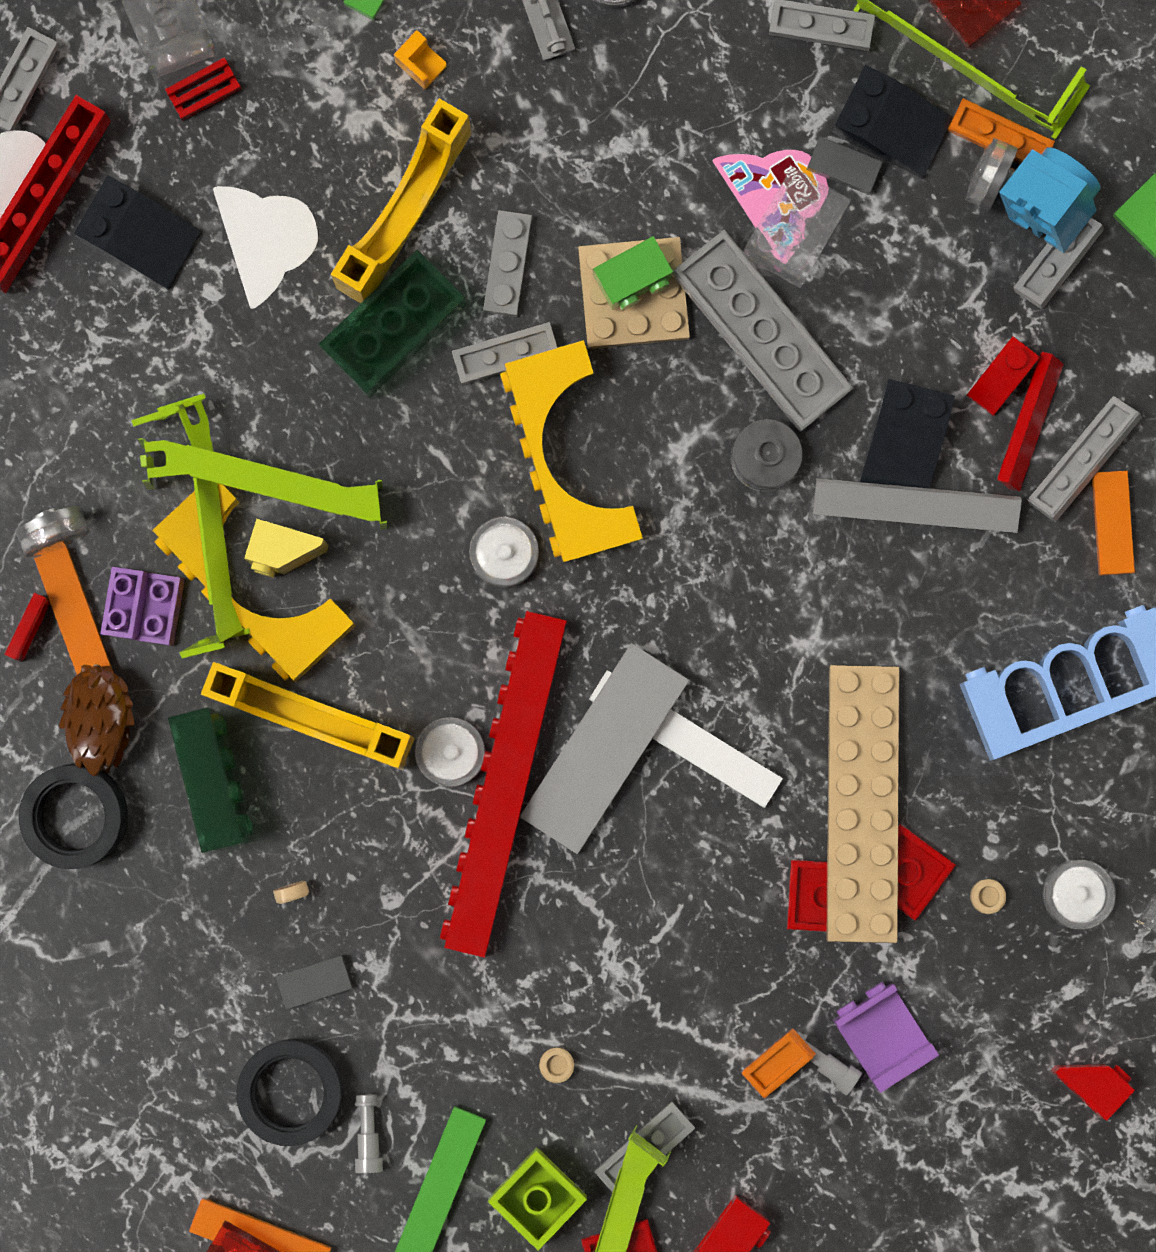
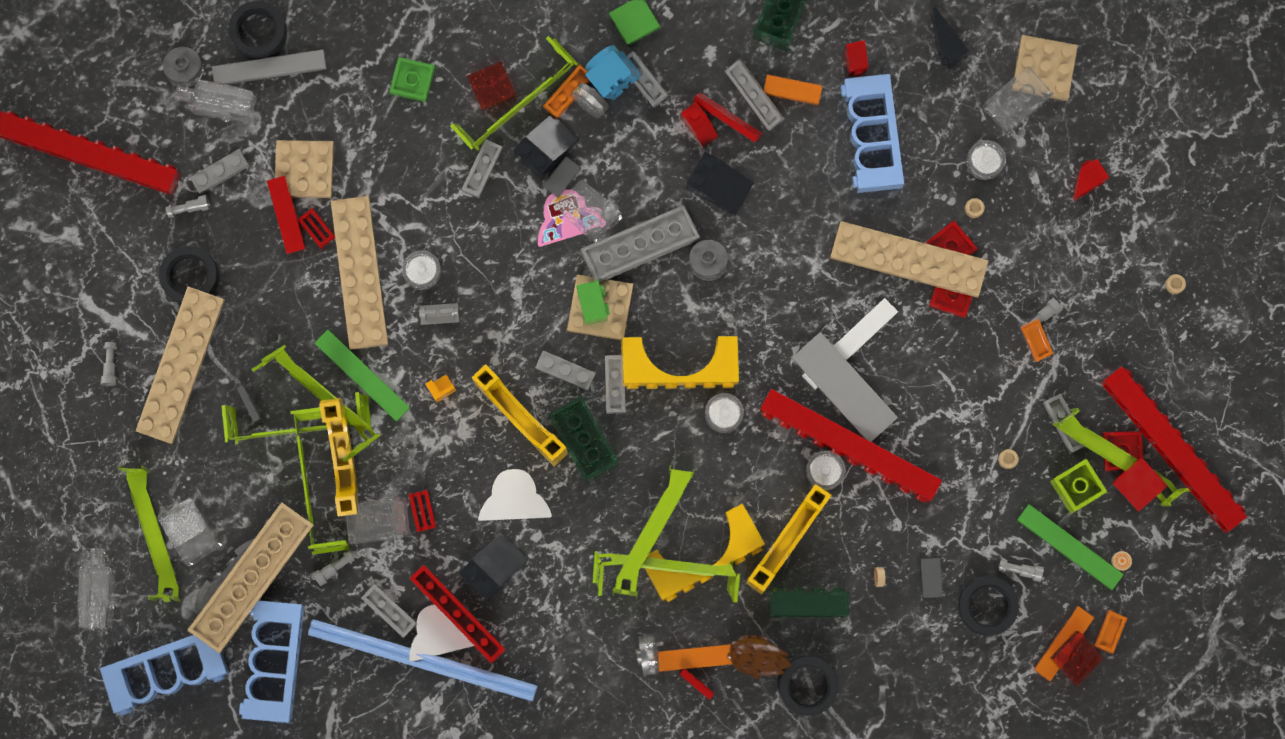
camera: 75 degrees left, 5 degrees down
(142, 606) = (701, 618): medium lavender slope -> none
(281, 548) = (691, 532): light yellow slope -> none
(884, 1036) = (1036, 281): medium lavender panel -> none
(917, 505) = (756, 188): light grey tile -> none

